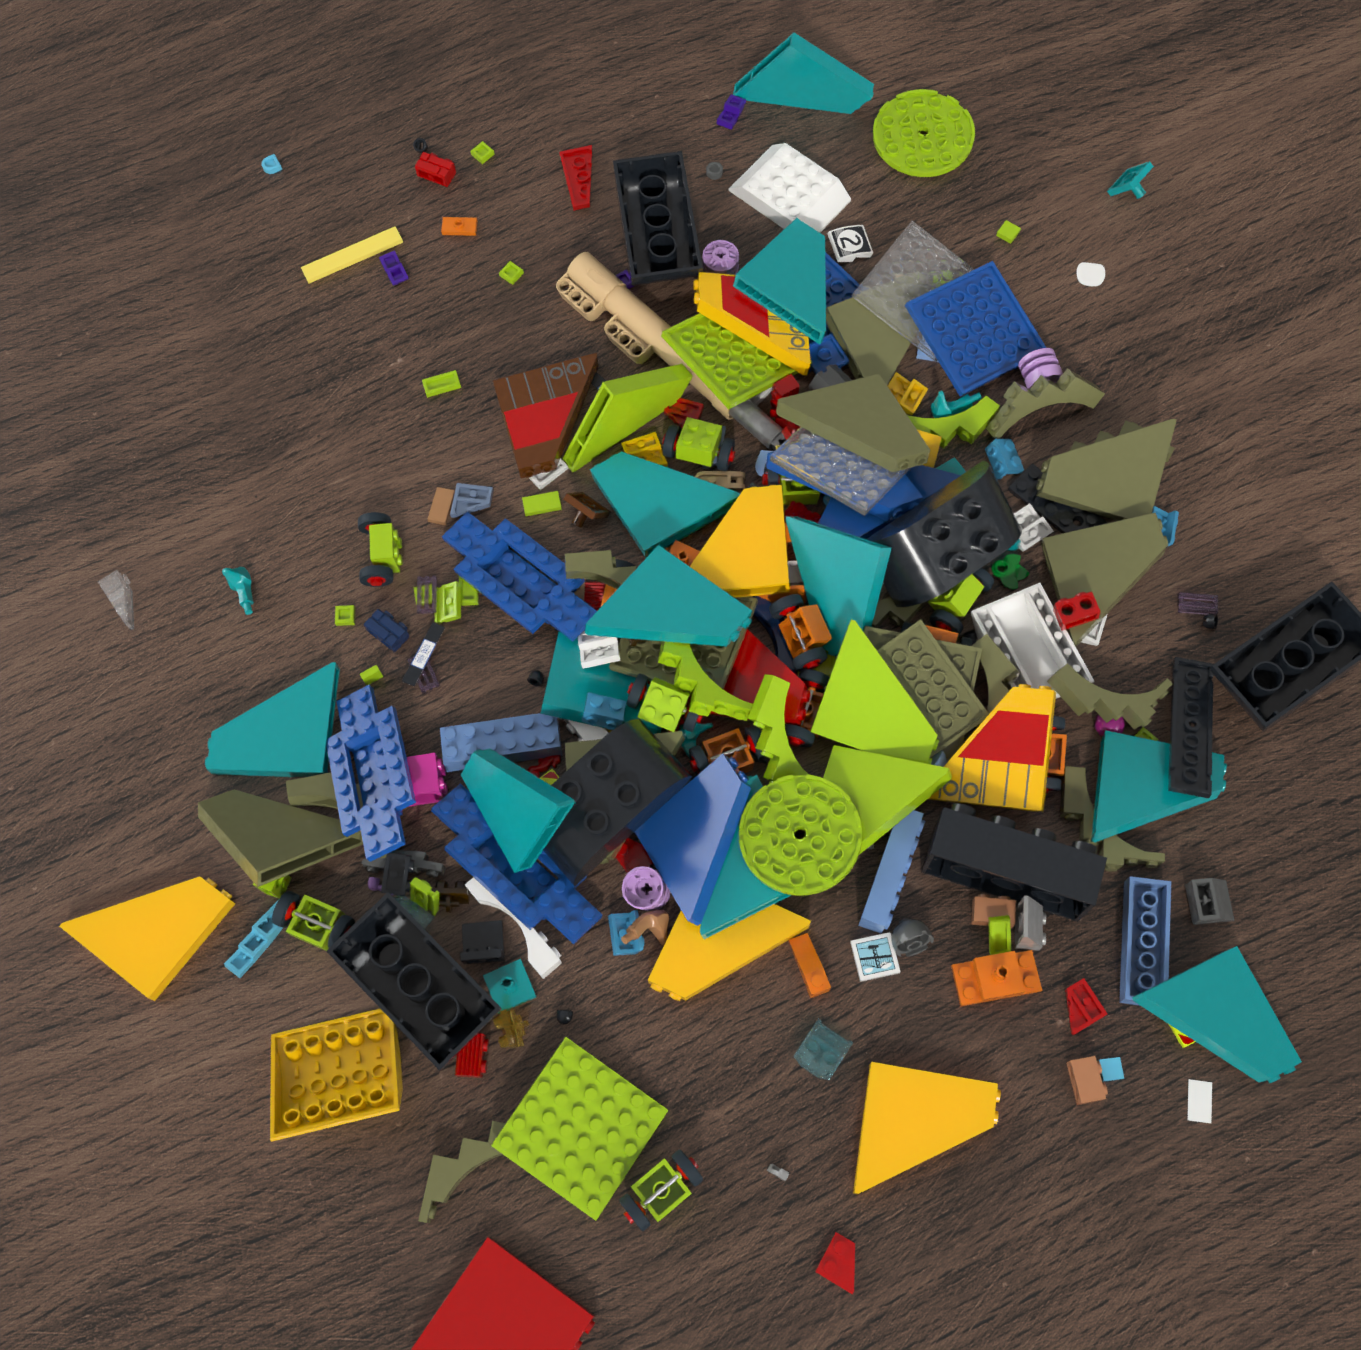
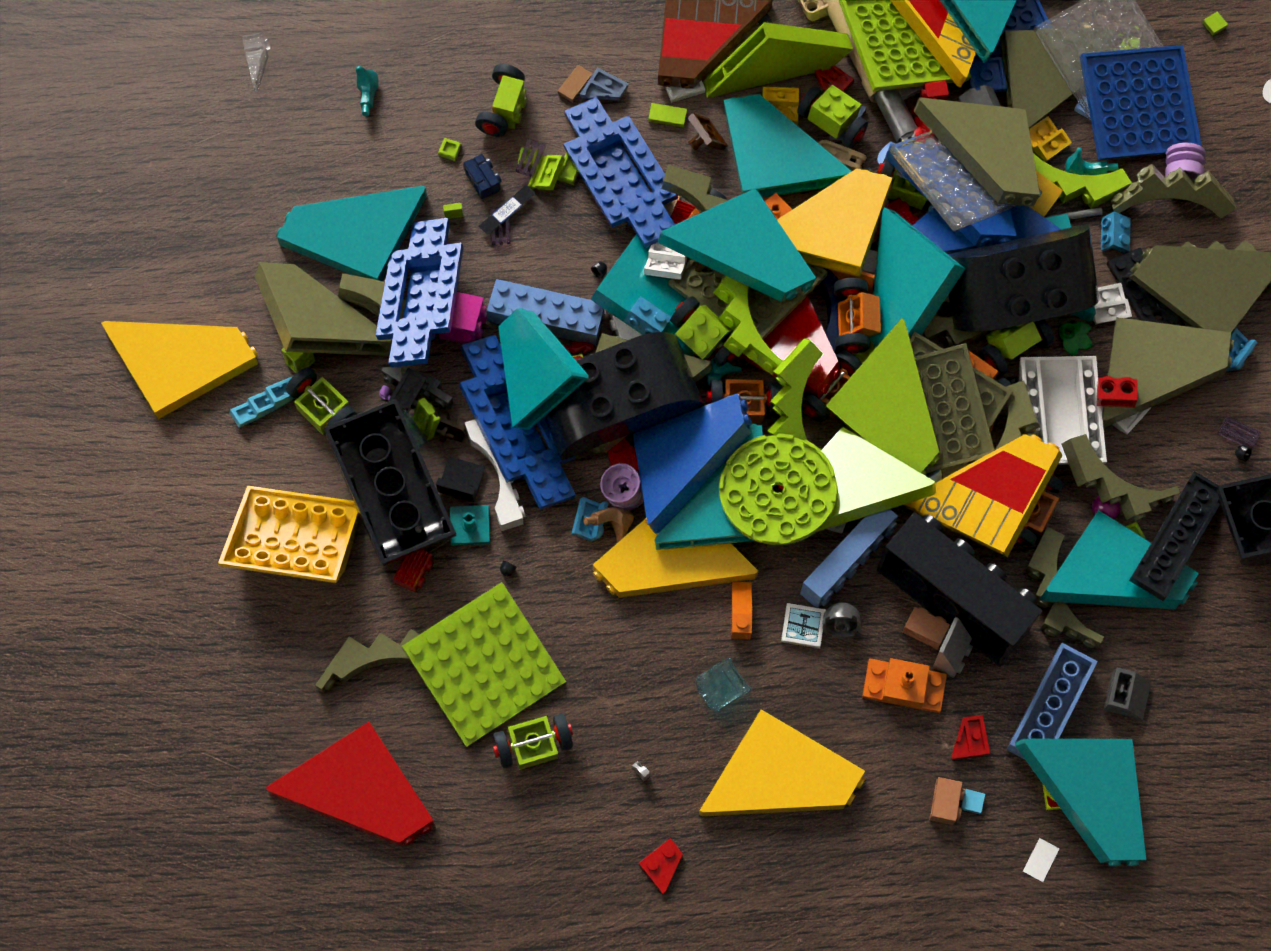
camera: 15 degrees right, 0 degrees up
(513, 1028) = (459, 560): clear yellow hips -> none
(968, 450) = (1082, 214): none -> light grey bar
(999, 934) = (922, 647): lime tile -> none

